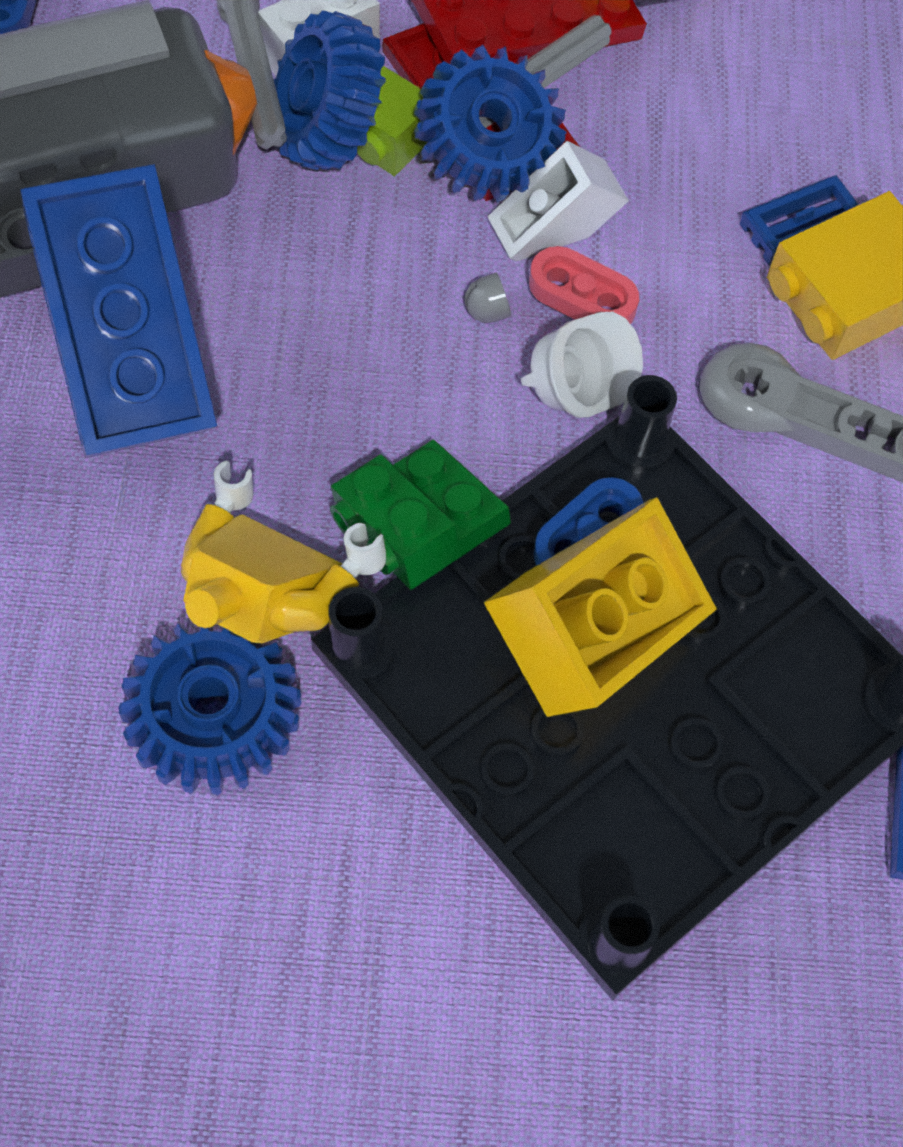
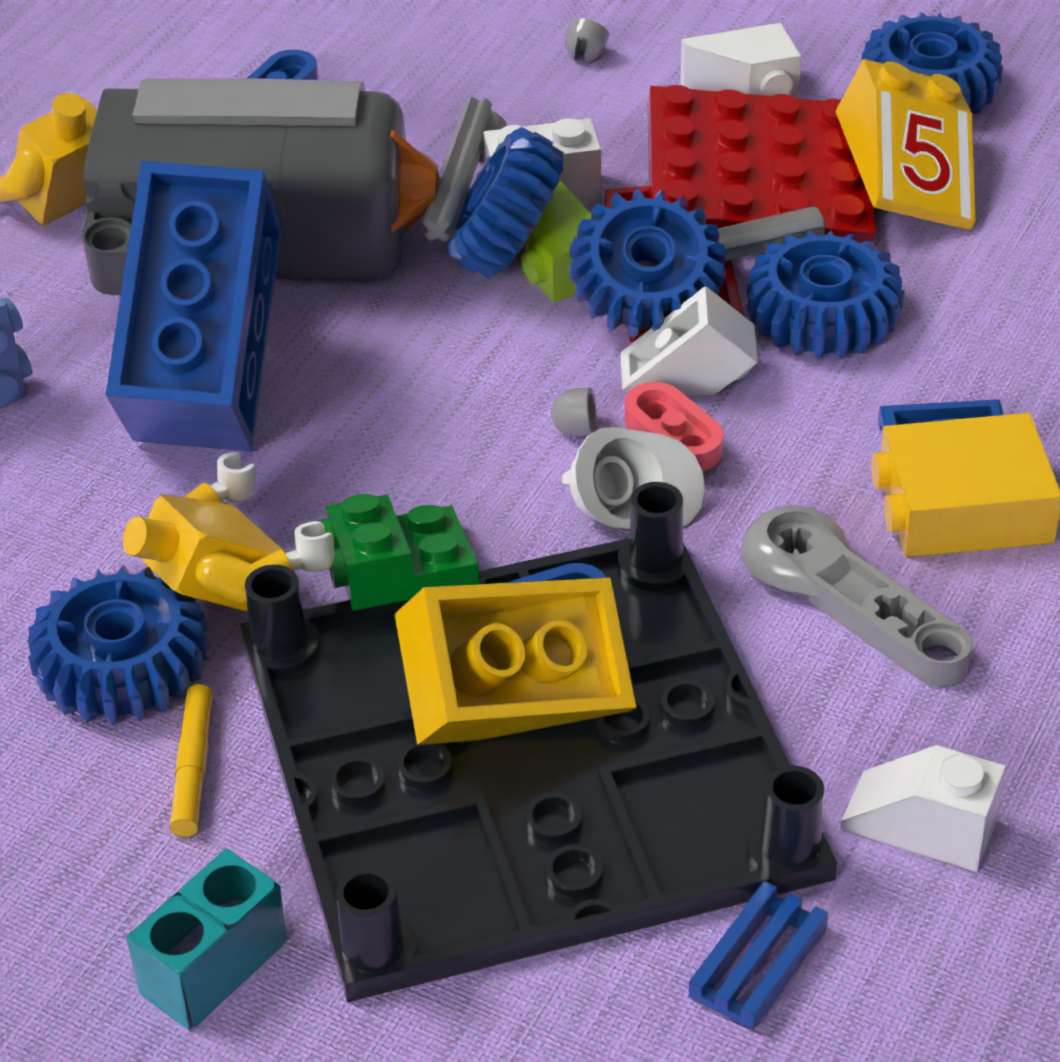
camera: 30 degrees right, 20 degrees down
(342, 803) = (191, 761): none -> yellow piece
(432, 1048) = (222, 956): none -> teal piece
(641, 104) = (825, 294): none -> blue gear

